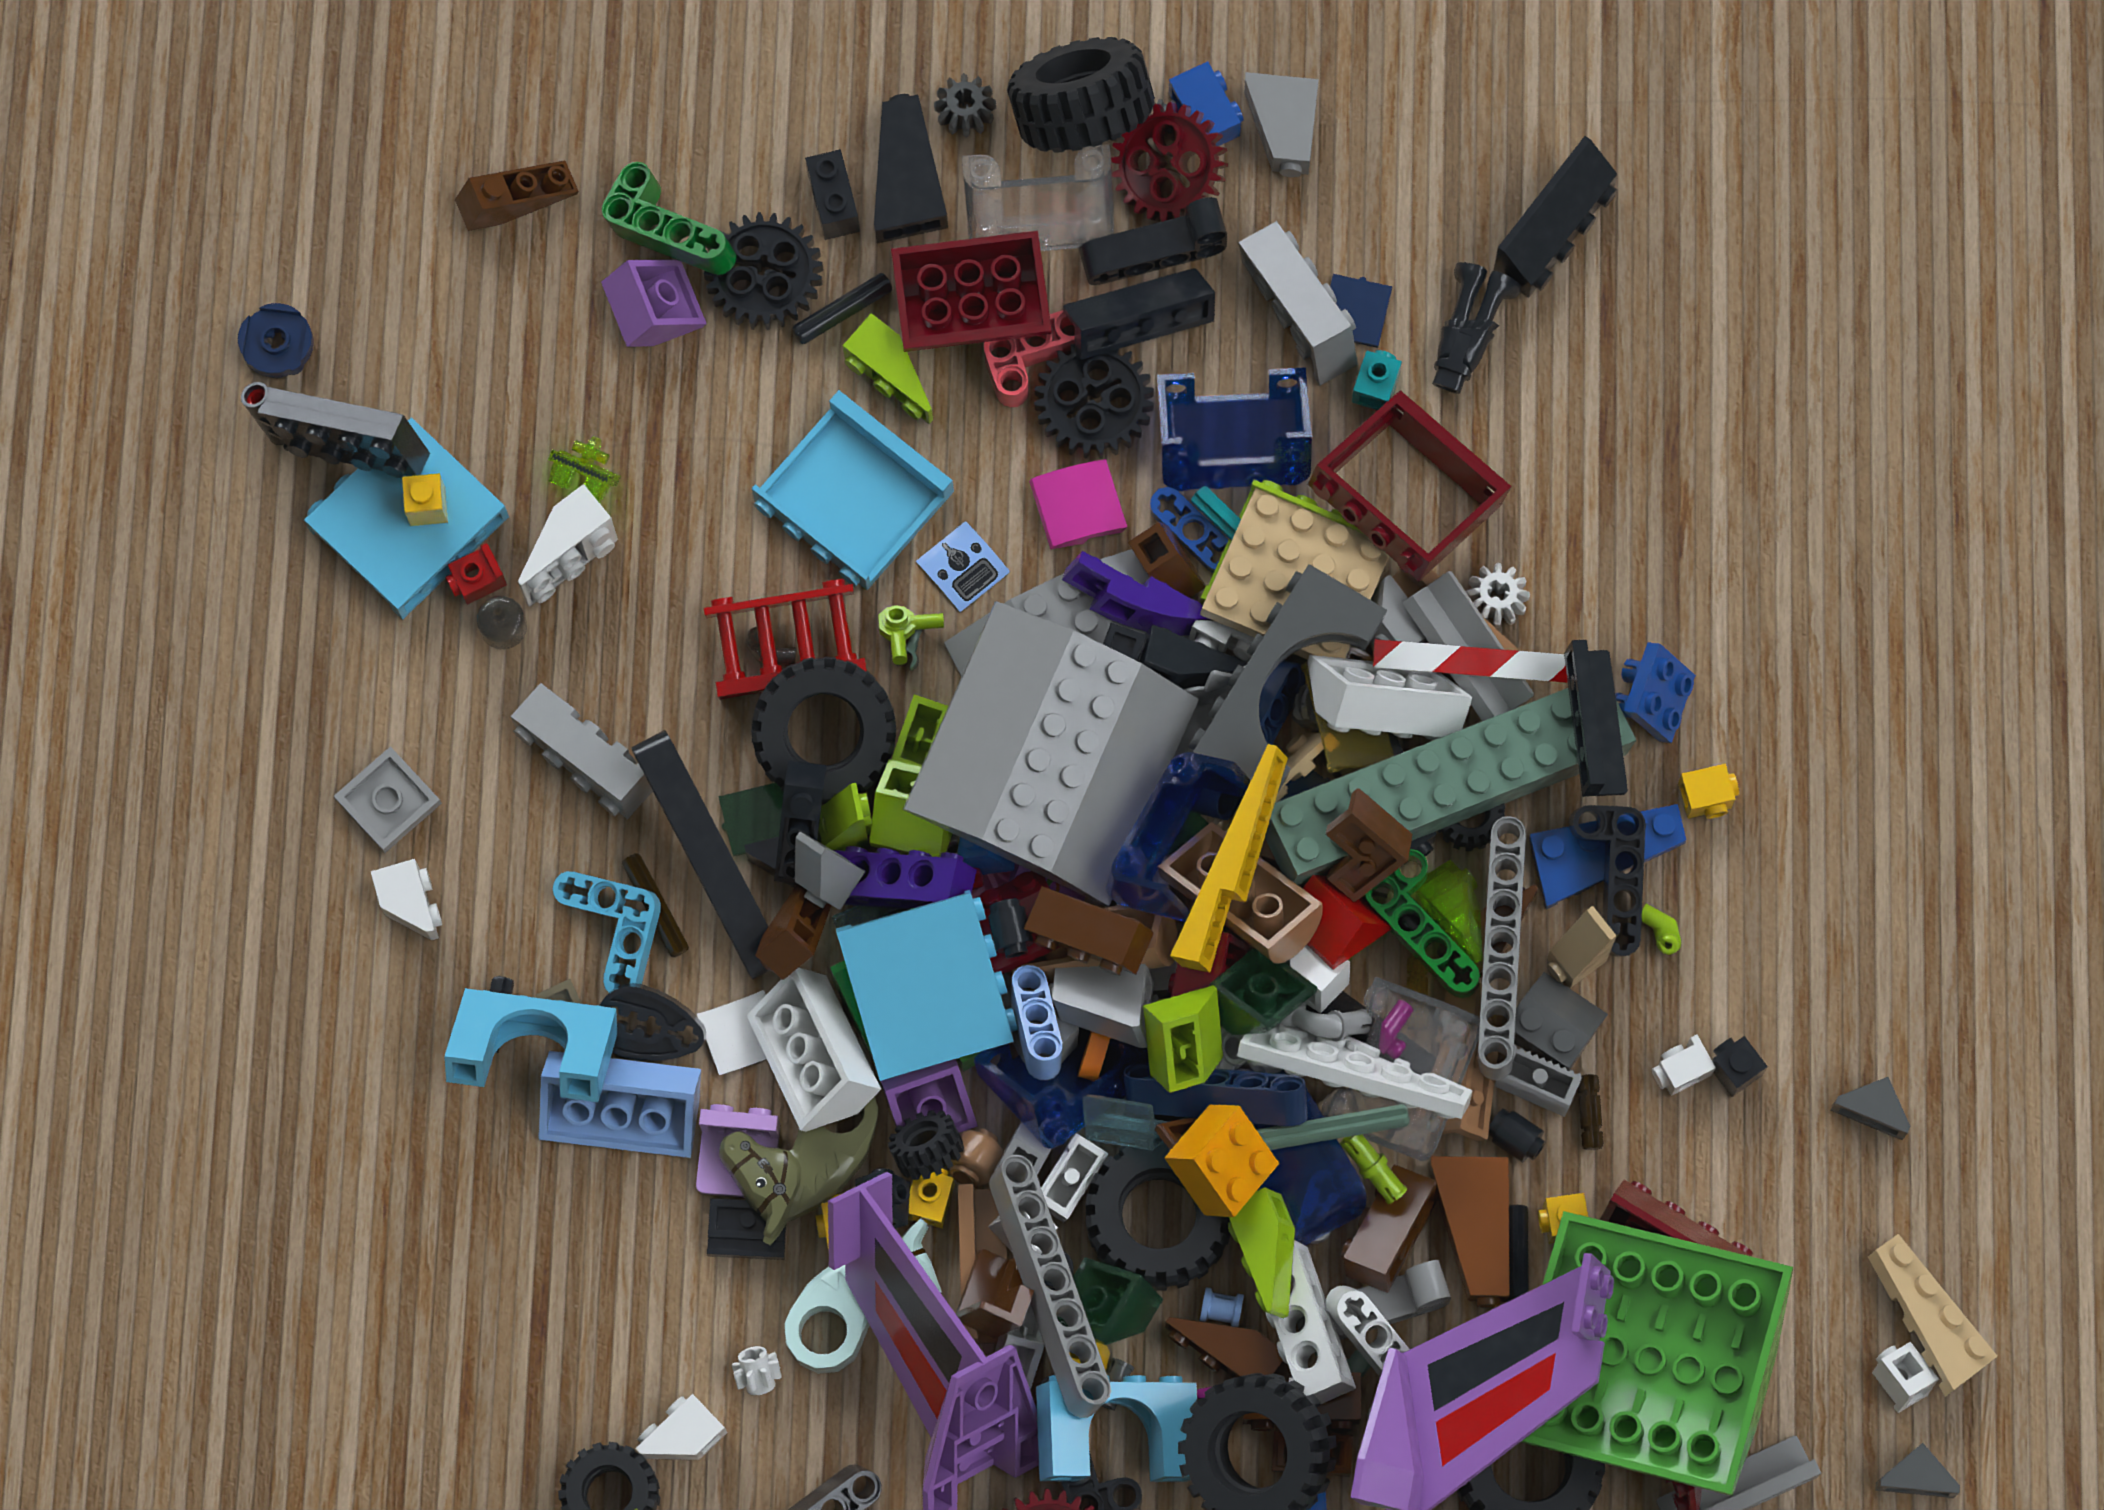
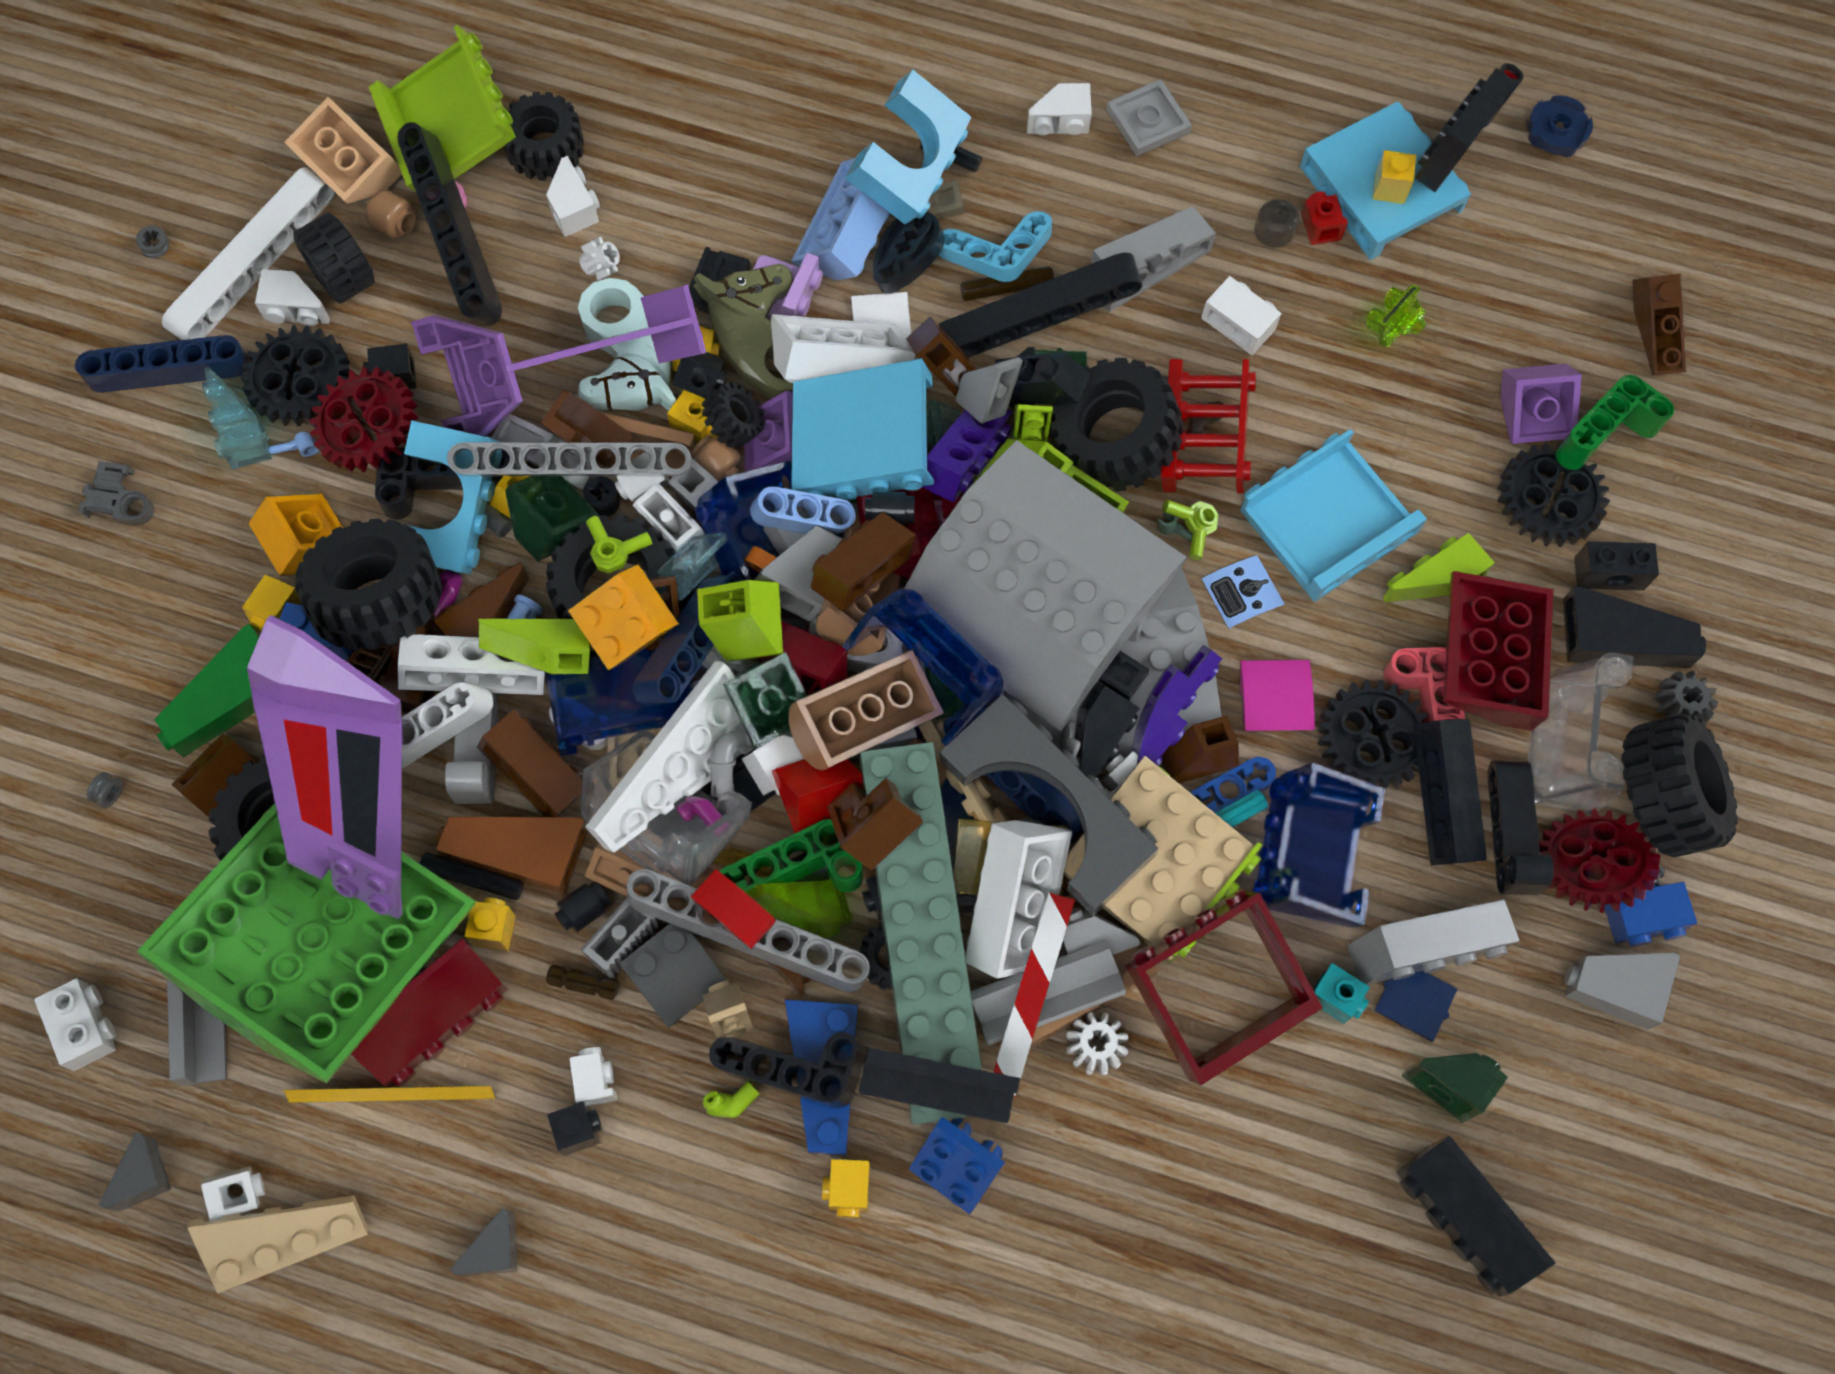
camera: 100 degrees right, 5 degrees down
(570, 539) = (1333, 278): white slope -> none
(634, 634) = (1241, 315): none -> white brick
(842, 308) = (1503, 545): black axle -> none
(1142, 1210) = (611, 553): none -> lime piece
(1232, 867) = (885, 694): yellow slope -> none
(1336, 1127) = (620, 724): sand green axle -> none
(1374, 1167) = (582, 754): lime pin -> none
(1434, 248) = (1458, 1083): none -> clear green slope
(1464, 339) = (1362, 1091): black piece -> none
(1494, 953) = (733, 908): none -> red slope
(1756, 1247) = (389, 1094): none -> yellow sticker

